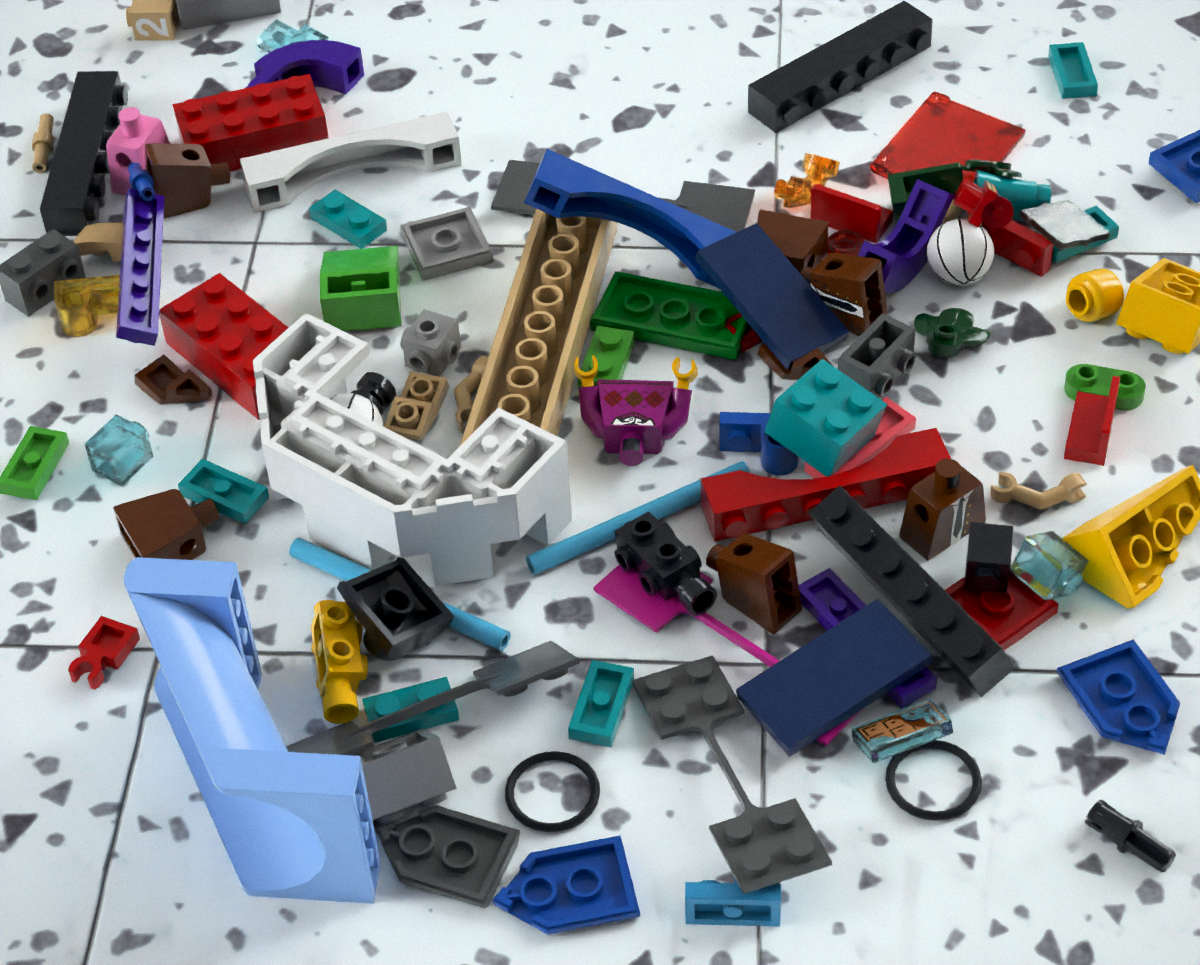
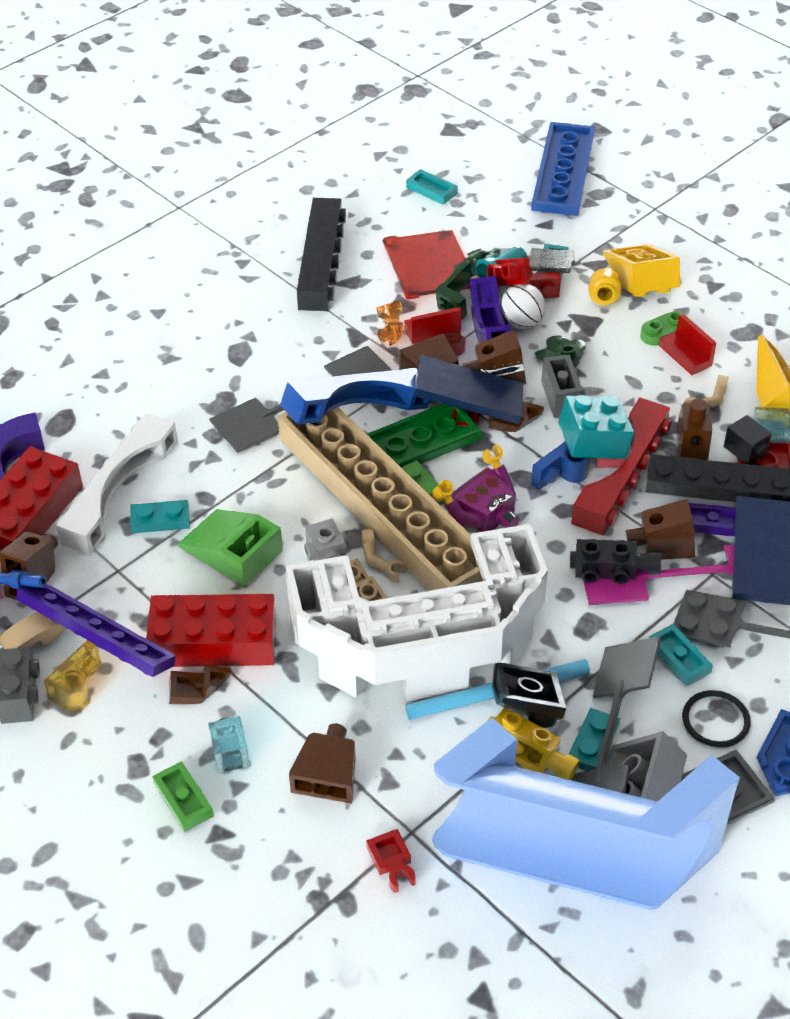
camera: 50 degrees left, 0 degrees up
(230, 492) = (319, 714): teal plate -> none
(446, 243) = (238, 488): light grey tile -> none
(605, 532) = (557, 550): medium azure piece -> none

